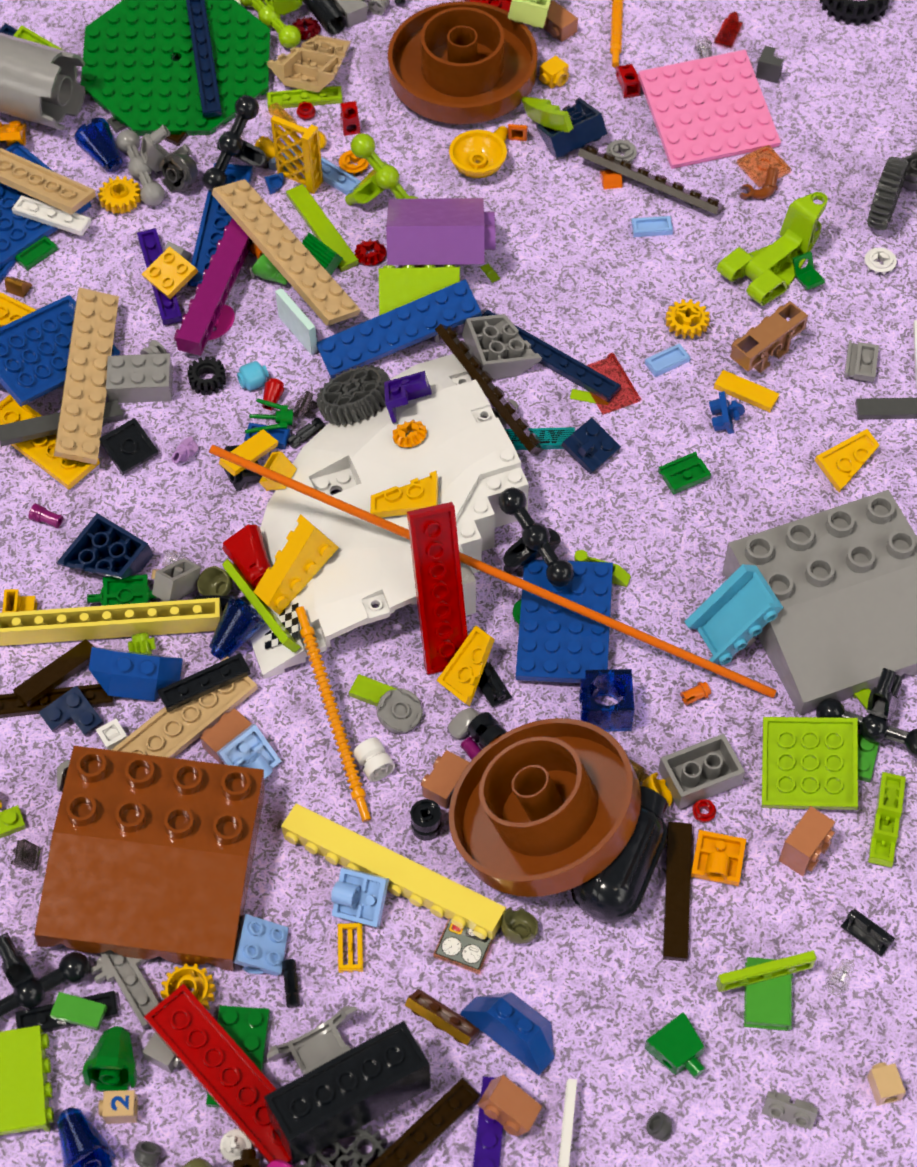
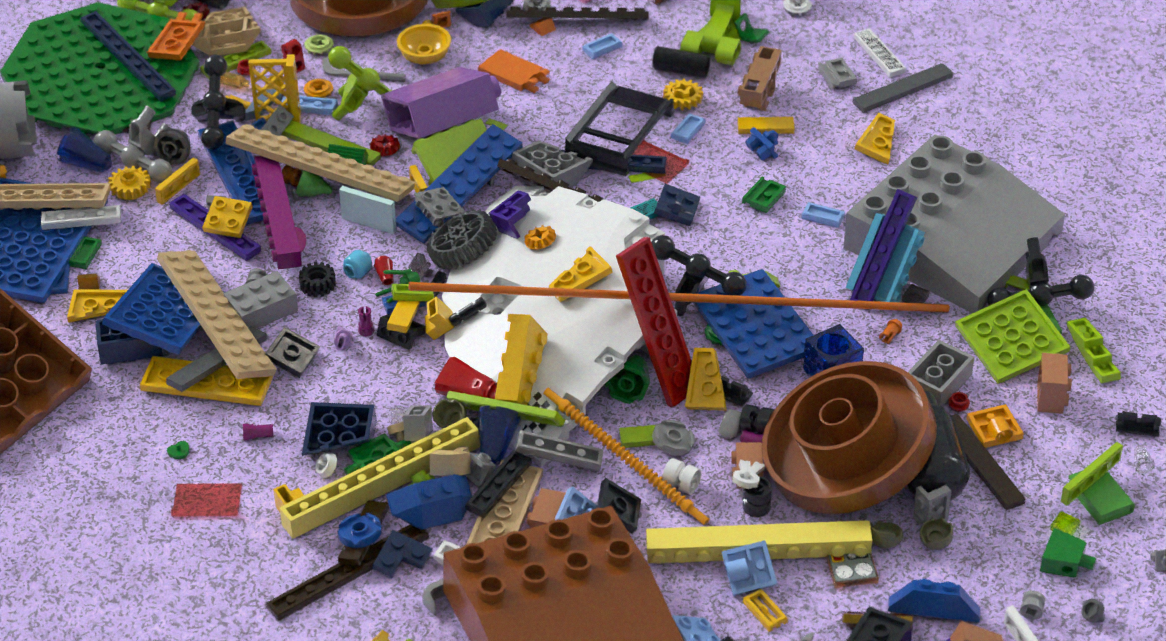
camera: 30 degrees left, 15 degrees down
(54, 679) = (351, 538): none -> blue tile
(75, 583) = (326, 465): none -> white hat
(160, 211) = (177, 181): none -> yellow tile
(172, 641) = (450, 462): none -> tan brick
(200, 656) = (480, 469): none -> light grey bracket
(212, 438) = (365, 324): none -> magenta pin
(258, 53) = (177, 37): none -> orange tile
(272, 433) = (402, 293): none -> lime tile
(279, 674) = (559, 450): none -> light grey brick
(285, 187) = (278, 121): none -> light grey hinge
(291, 763) = (623, 502): none -> black hinge
(306, 478) = (467, 311): none -> black axle
(359, 346) = (437, 205): none -> light grey hinge
(368, 306) = (415, 176): none -> yellow tile
(388, 106) = (314, 46): none -> yellowish green gear
(400, 628) = (631, 381): none -> green cone
(403, 161) = (345, 73): none -> light grey piece
(418, 800) = (747, 475): none -> white piece
(546, 219) = (514, 71): none -> orange tile
(556, 365) = (606, 158): none -> black piece
(567, 953) = (936, 534): none -> olive hair
(581, 924) = (932, 504): none -> light grey bracket
(603, 1085) = (1032, 604): none -> light grey wheel
(707, 1009) = (1065, 523): none -> clear neon green tile
(712, 280) = (681, 61): none -> black piece
(728, 522) = (823, 214): none -> light blue tile
(735, 603) = (884, 246): none -> dark purple plate
(750, 664) = (915, 294): none -> clear smoke plate

